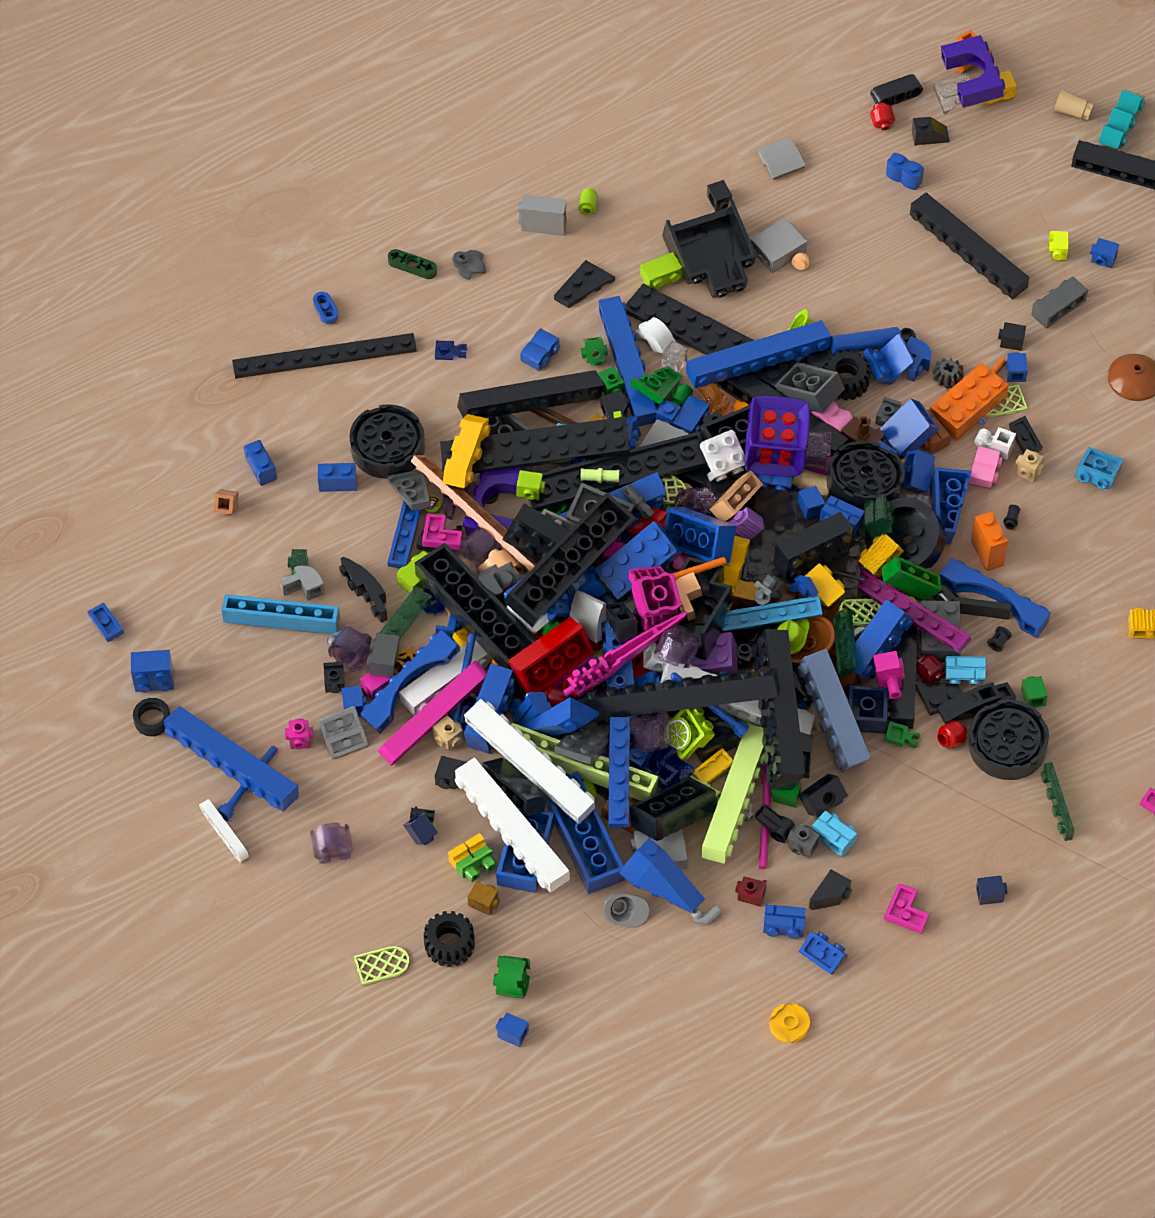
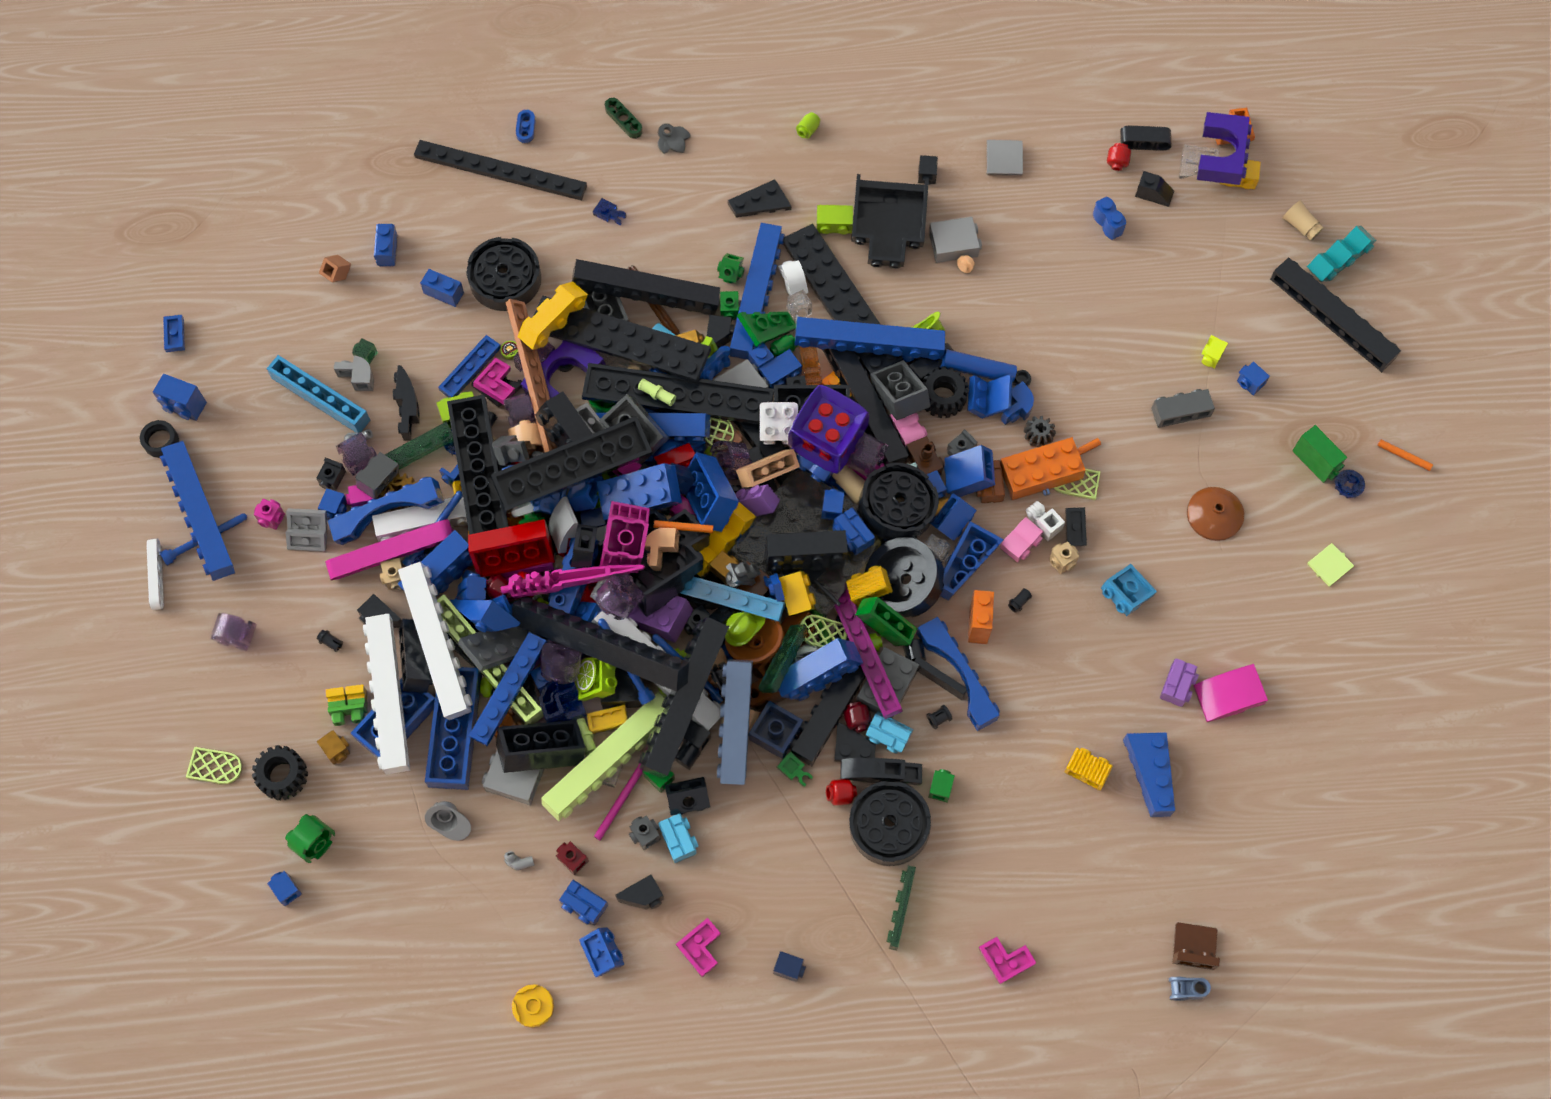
camera: 25 degrees right, 10 degrees up
(411, 488) = (497, 329): dark grey wing -> none
(420, 829) = (317, 655): dark blue brick -> none
(530, 485) = (588, 374): lime brick -> none
(540, 349) = (685, 246): blue brick -> none
(542, 215) = (758, 121): light grey brick -> none
(638, 501) = (673, 433): dark grey pin -> none
(658, 873) = (490, 806): blue wedge -> none
(777, 825) = (631, 806): black piece -> none
(879, 516) = (883, 549): clear green brick -> none
(889, 672) = (809, 708): dark pink brick -> none
(969, 245) = (1129, 316): black brick -> none
(1012, 336) = (1119, 422): black brick -> none
(1016, 367) = (1106, 454): blue brick -> none

